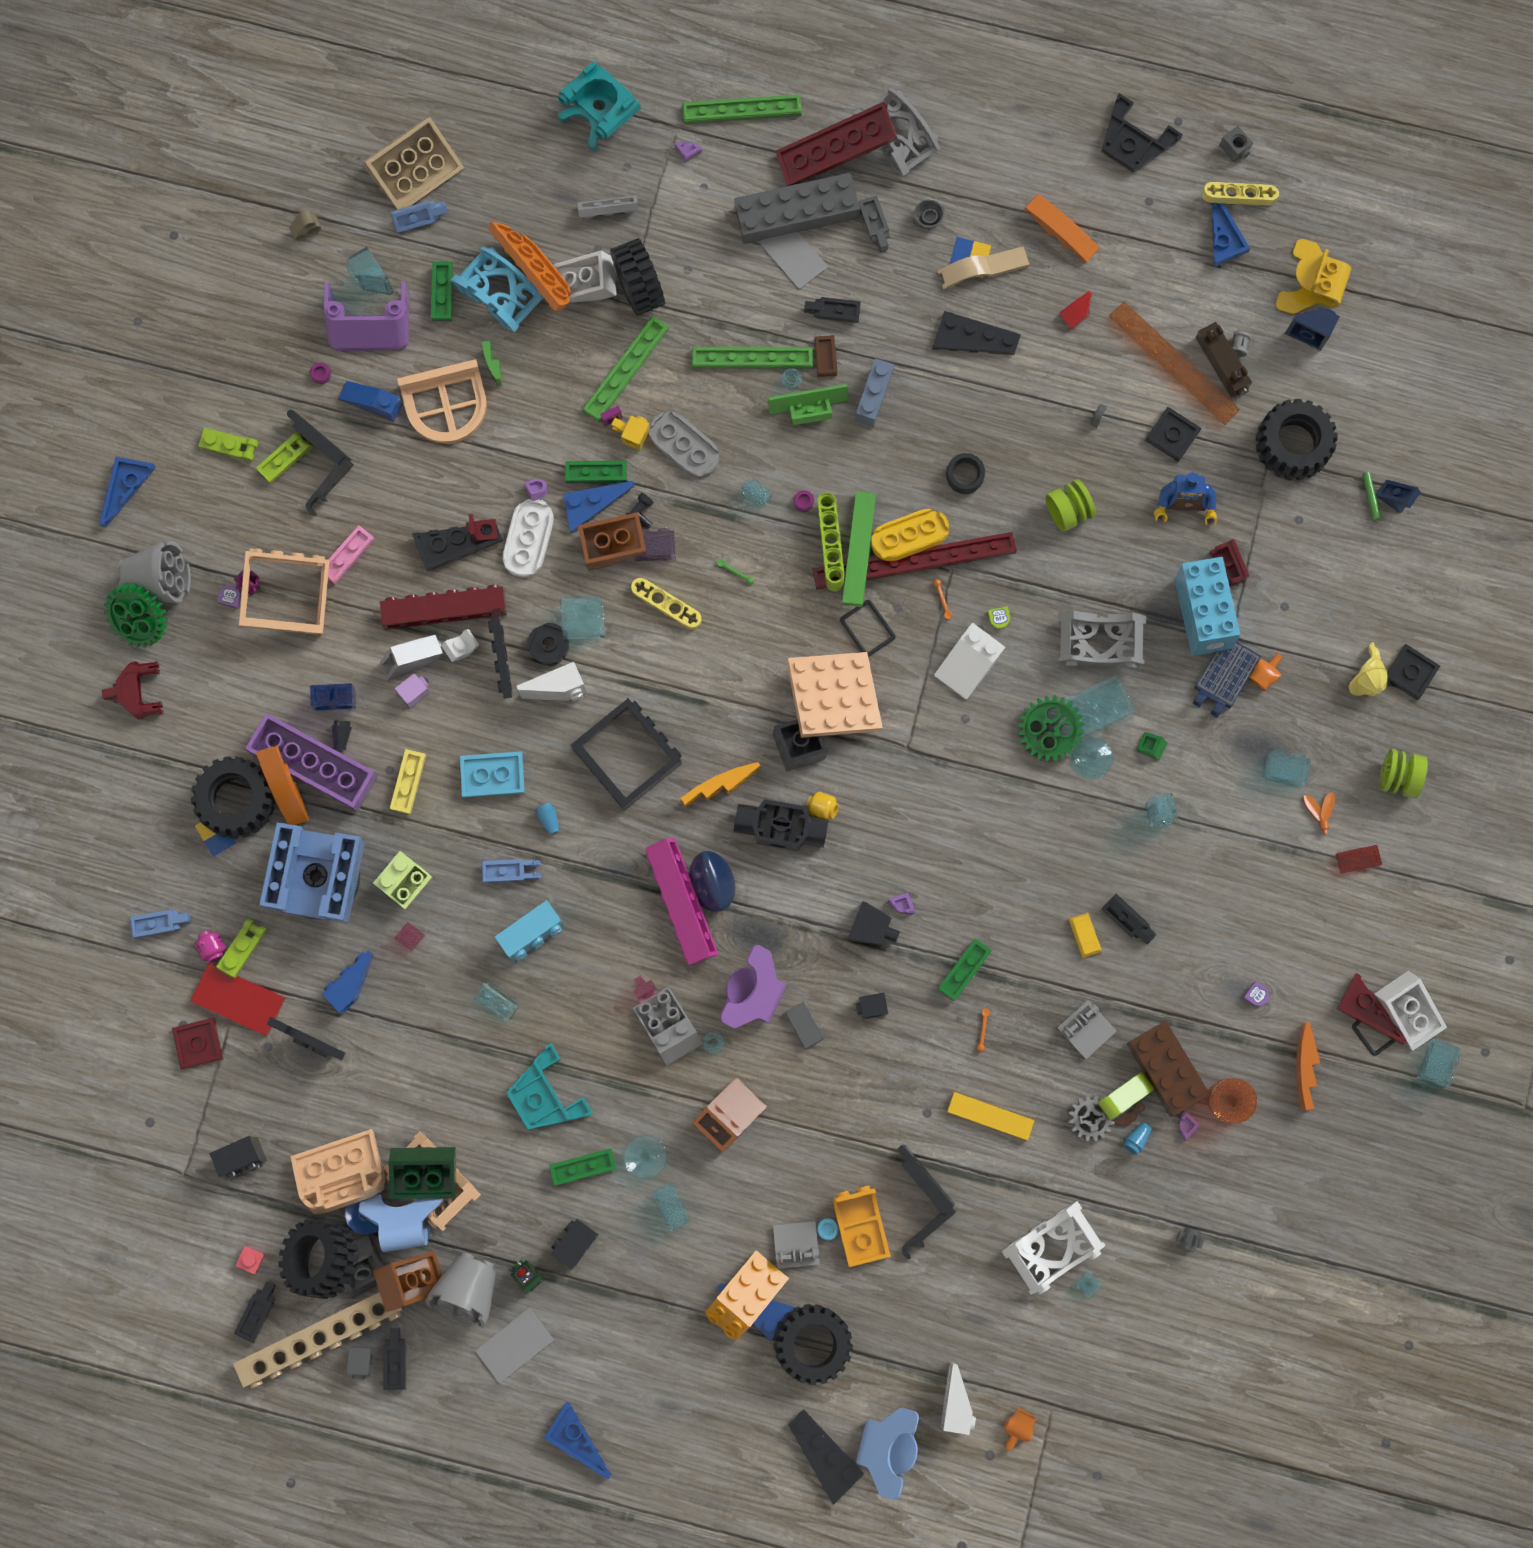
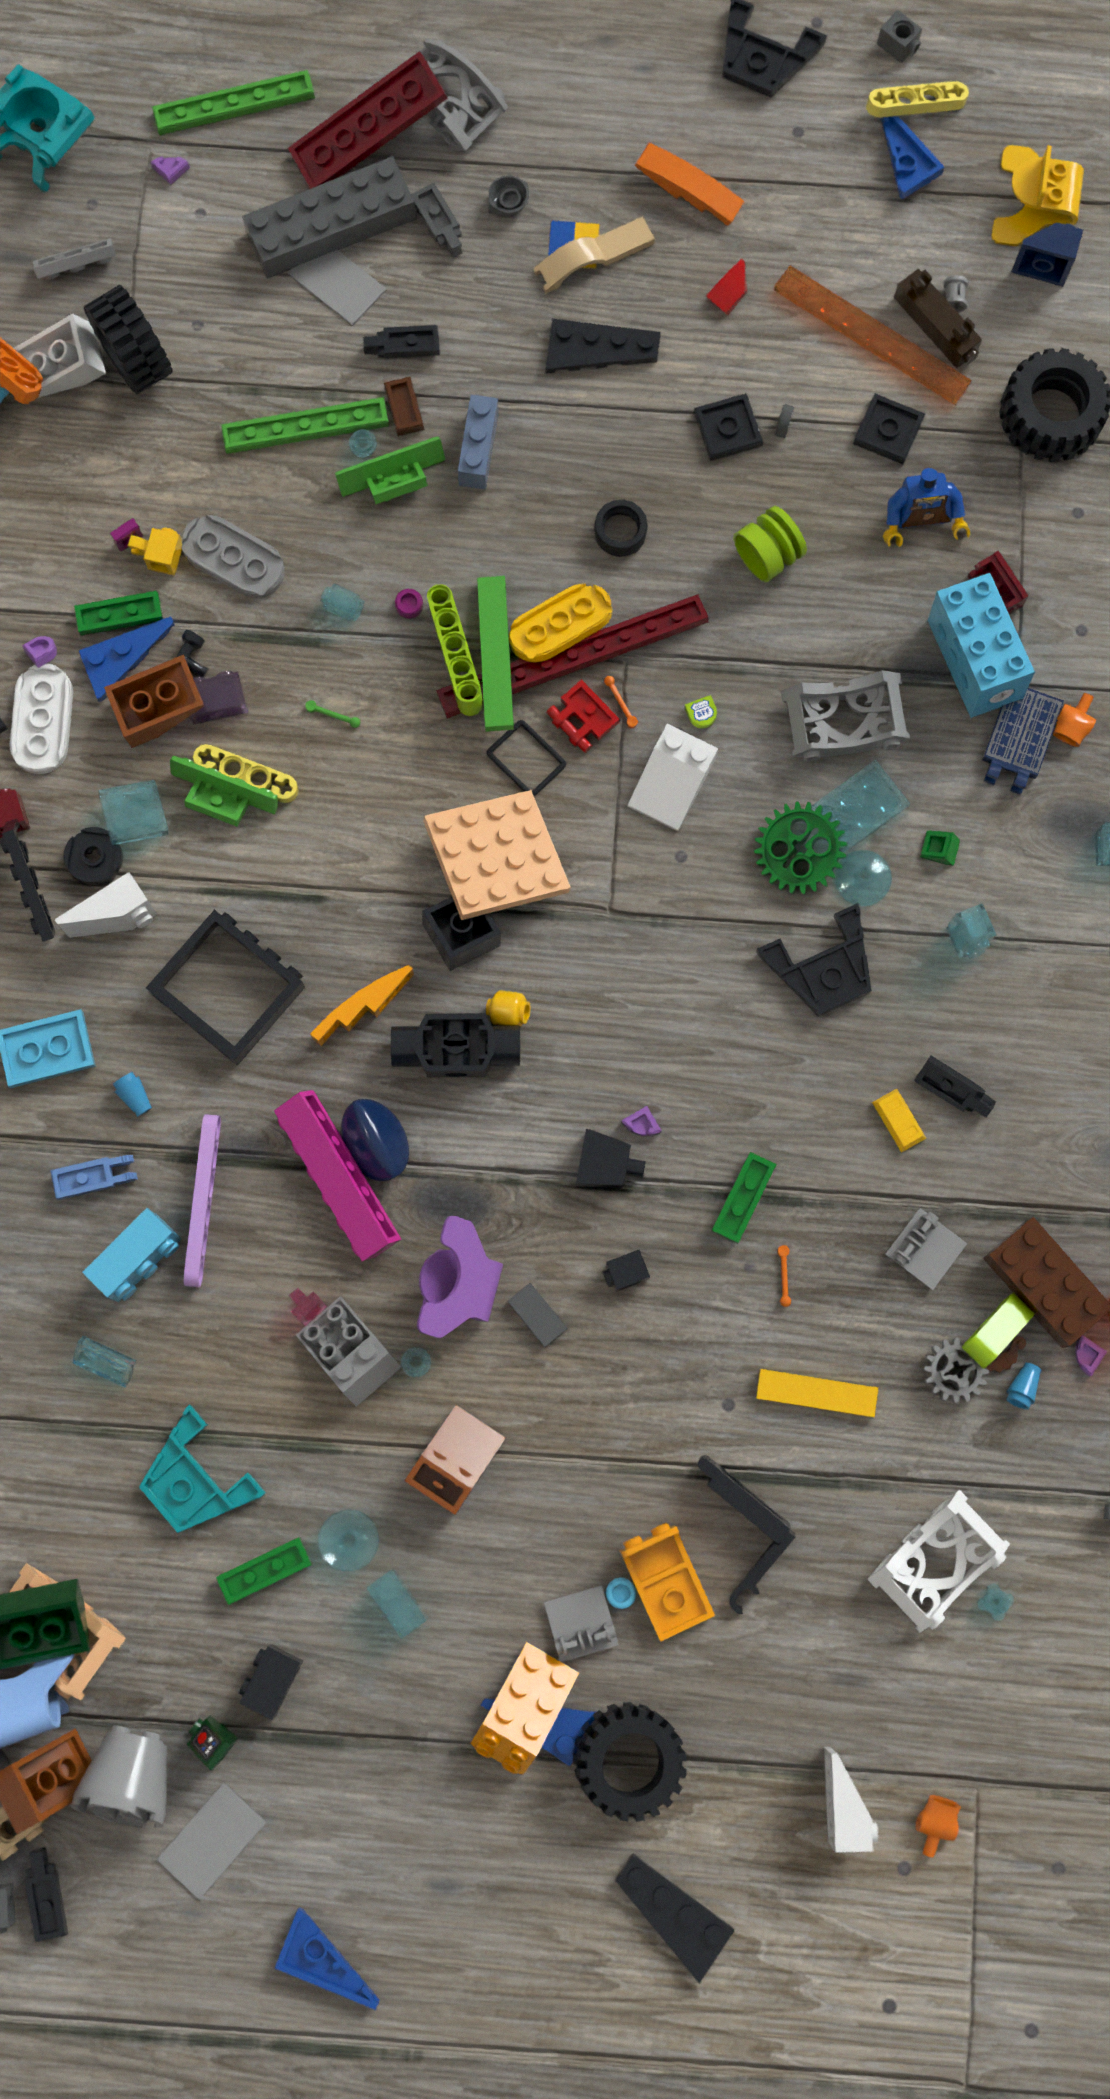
camera: 10 degrees left, 0 degrees up
(584, 901) = (202, 1200): none -> lavender beam
(626, 368) = (136, 468): bright green tile -> none
(645, 616) = (219, 794): none -> bright green bracket
(889, 1450) = (764, 1891): light blue piece -> none
(919, 602) = (589, 710): none -> red plate
(1054, 824) = (830, 976): none -> black wing
(1057, 412) = (728, 427): none -> black tile

